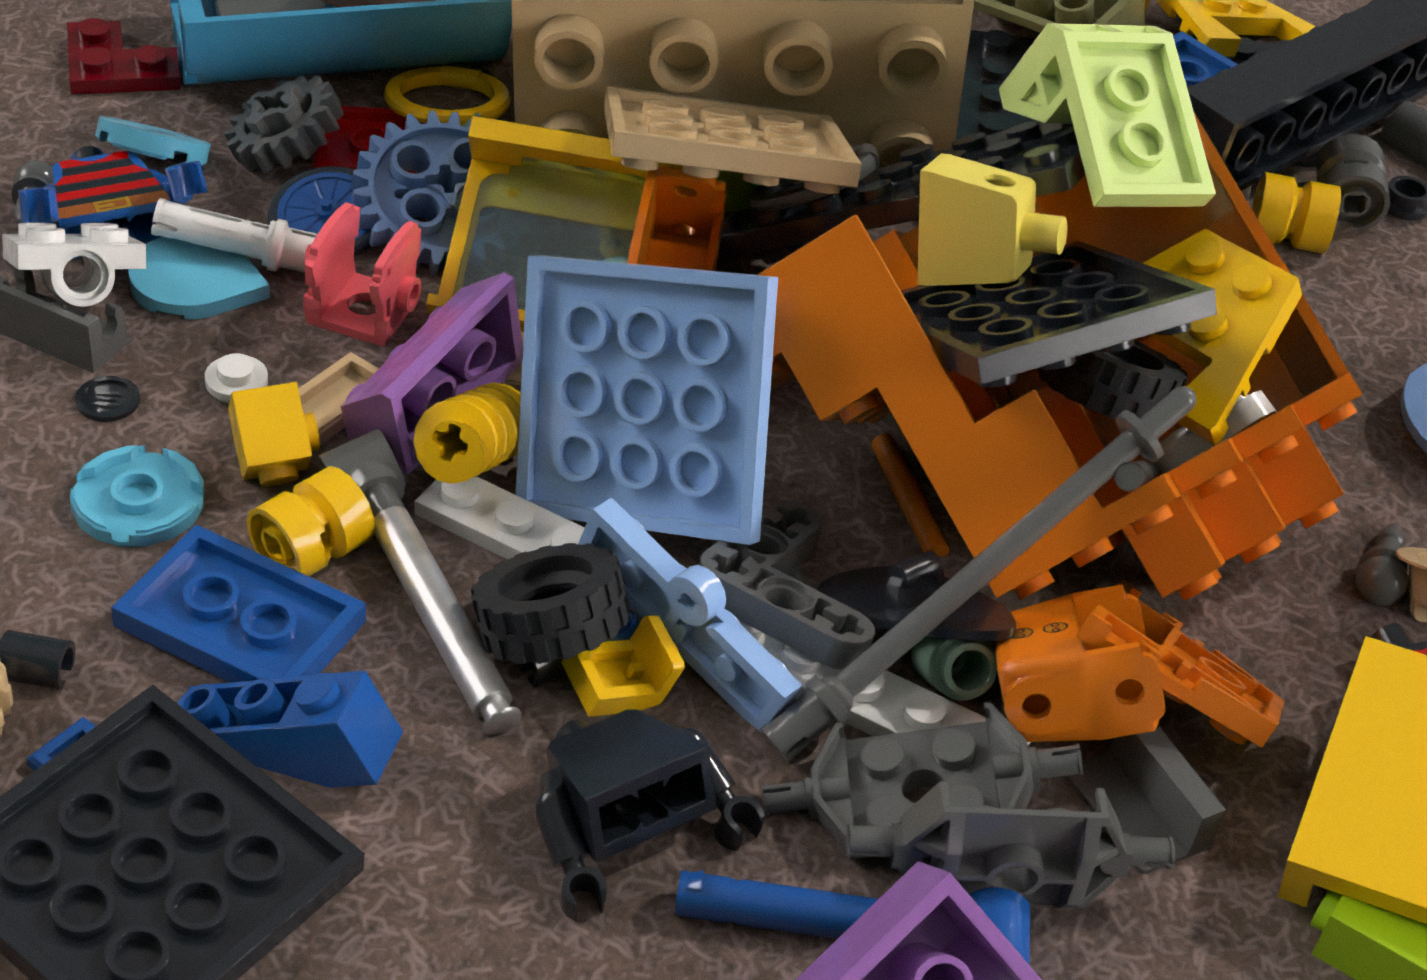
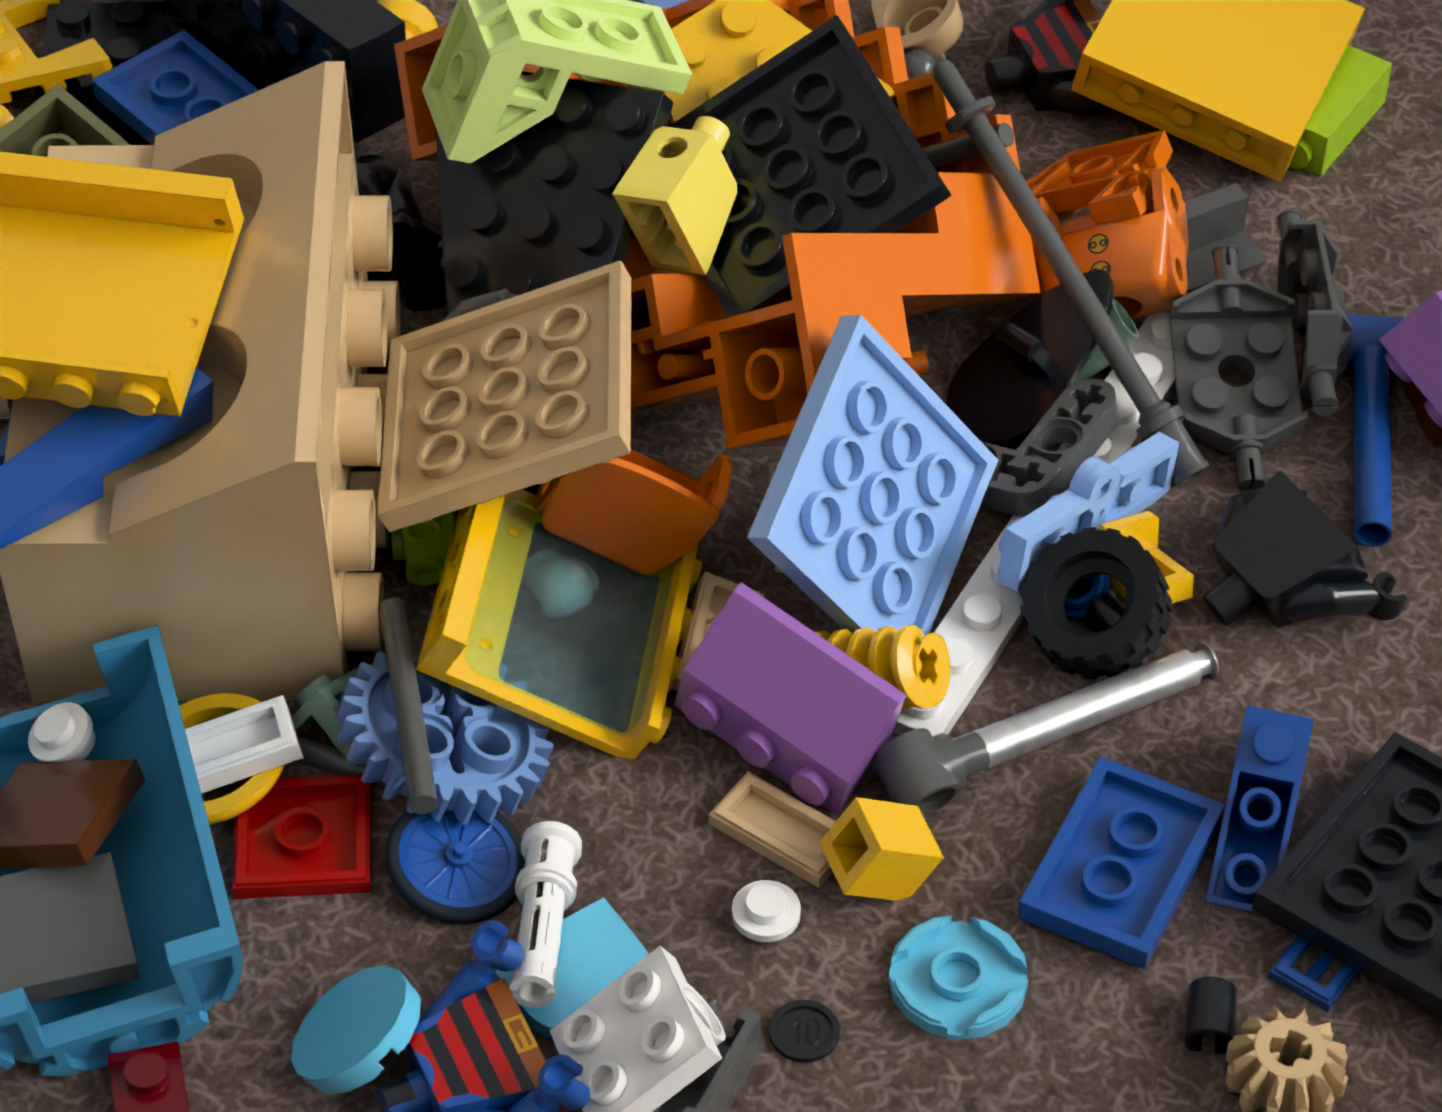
camera: 85 degrees left, 5 degrees up
(284, 123) = (323, 879): dark grey gear -> none
(313, 523) = (998, 801): yellow wheel -> none
(337, 285) = (627, 785): coral piece -> none
(397, 137) = (408, 706): none -> dark grey bar
(440, 87) = (243, 743): none -> white tile

